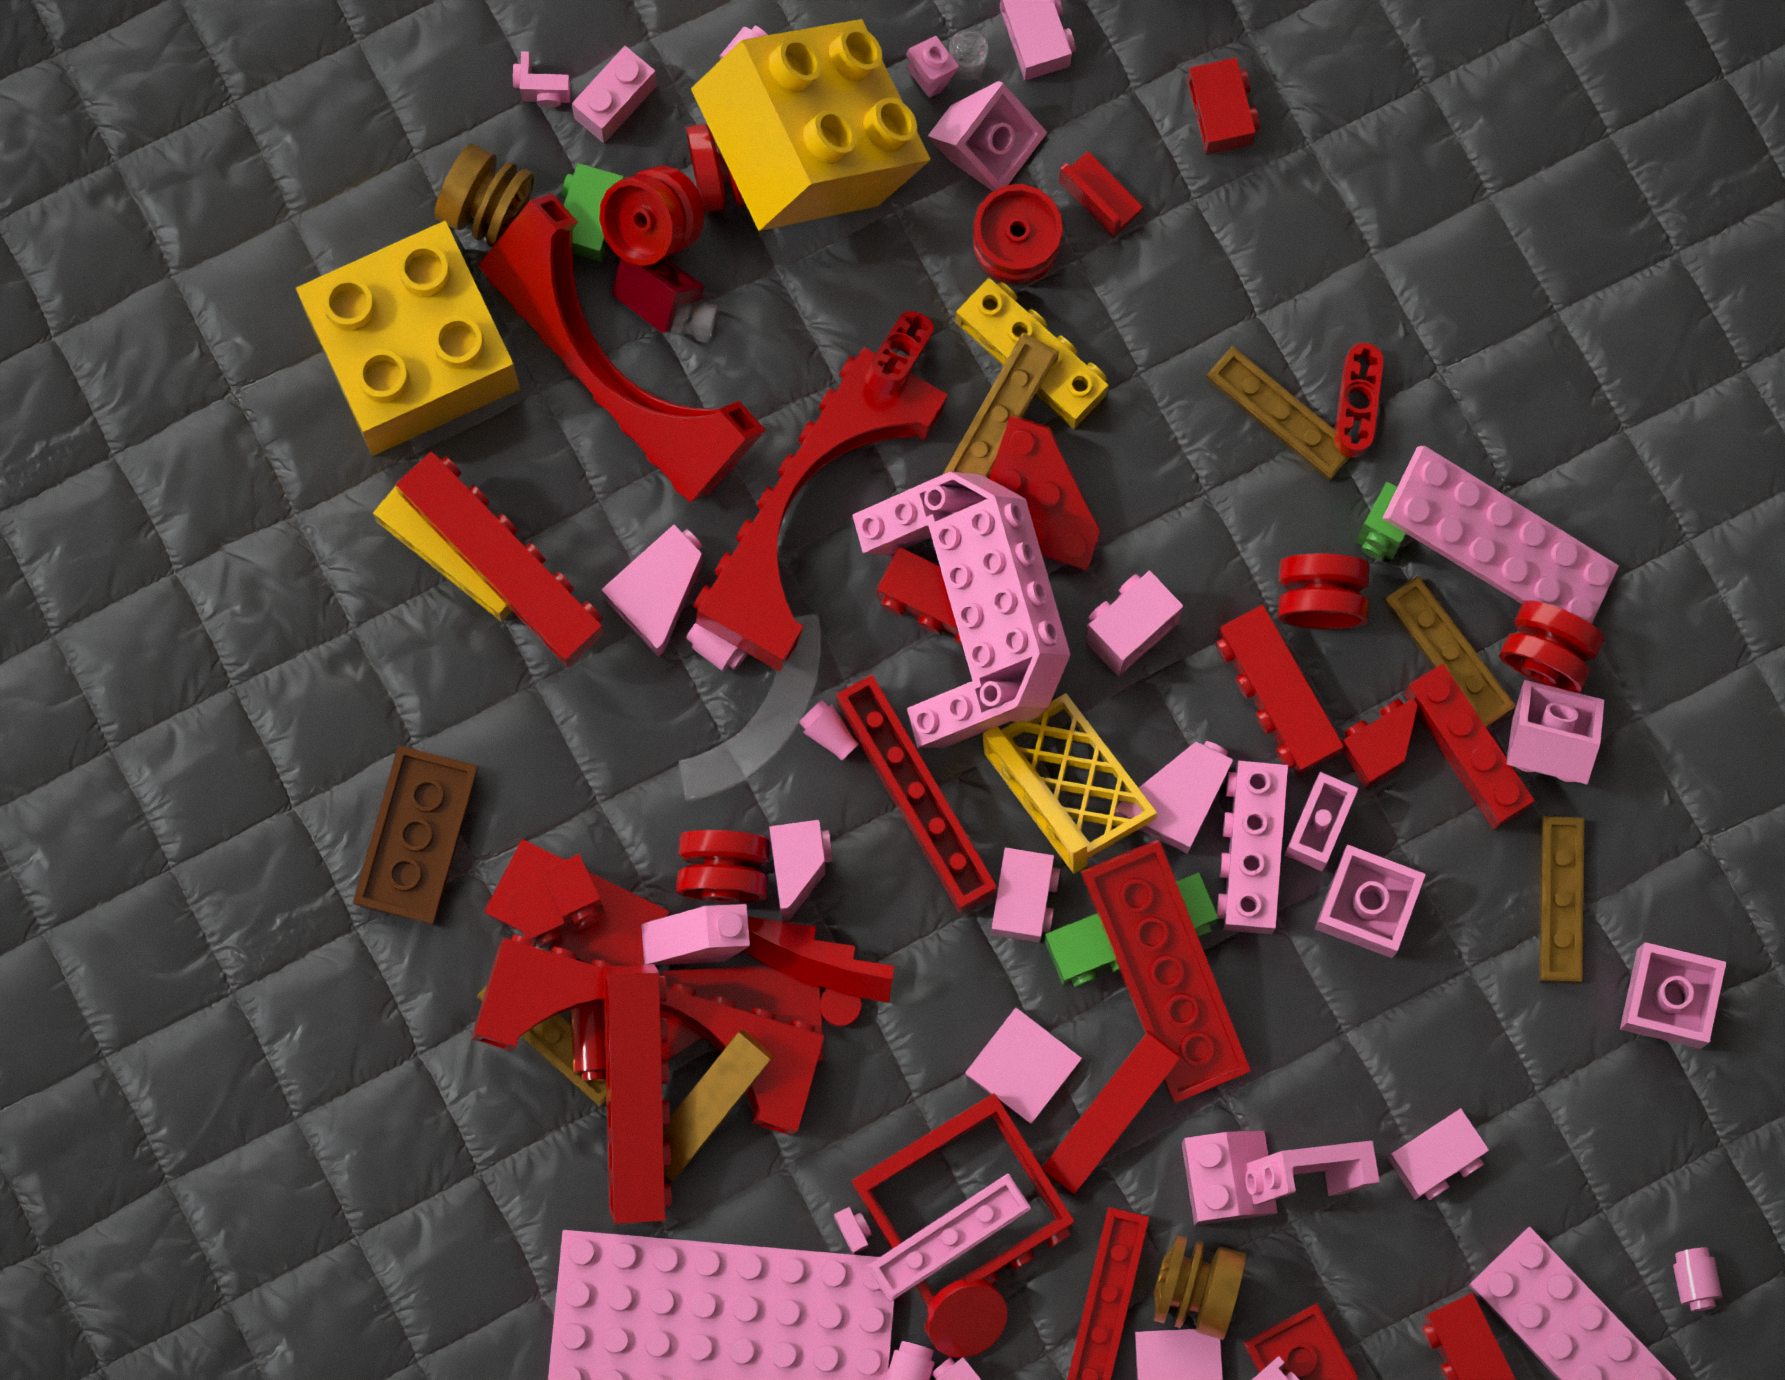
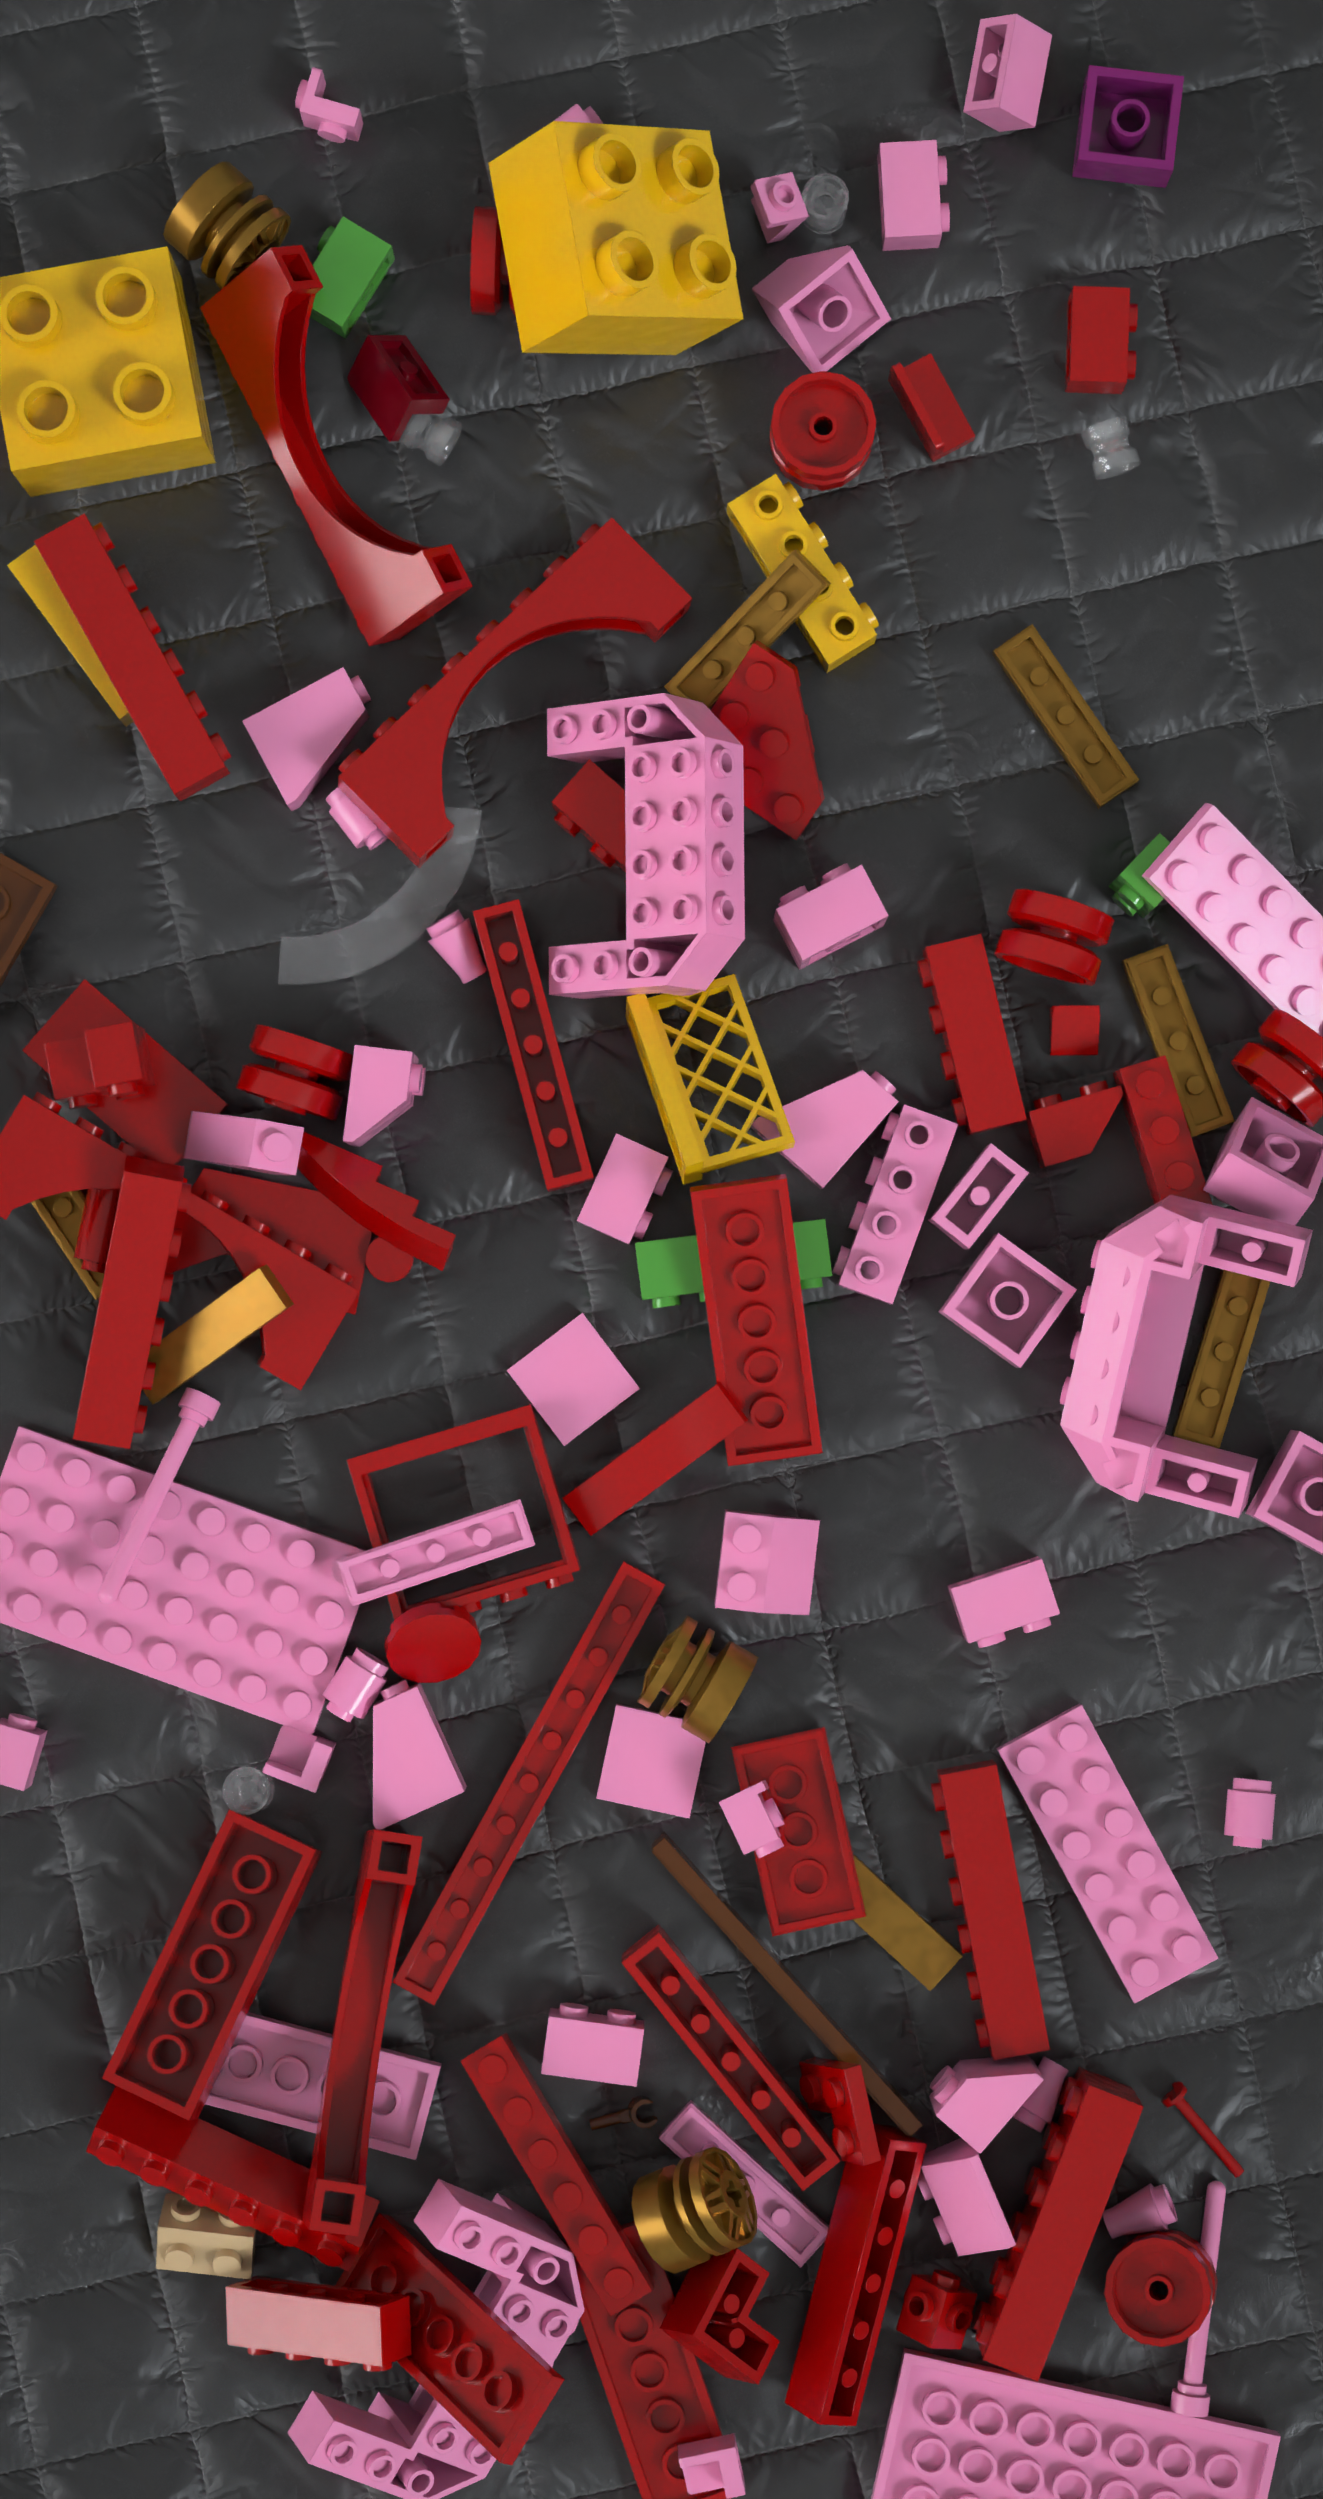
camera: 20 degrees right, 10 degrees up
(614, 94) = (408, 145): bright pink brick -> none
(651, 215) = (409, 300): red wheel -> none
(711, 1175) = (195, 1412): none -> bright pink piece
(853, 1229) = (336, 1512): bright pink plate -> none
(899, 364) = (647, 551): red beam -> none
(1256, 188) = (1111, 448): none -> clear wheel
(1345, 1169) = (895, 1593): bright pink panel -> none
(1361, 665) = (1074, 1030): none -> red slope
(1371, 388) = (1181, 700): red beam -> none
(1487, 902) = (1137, 1339): none -> bright pink wedge

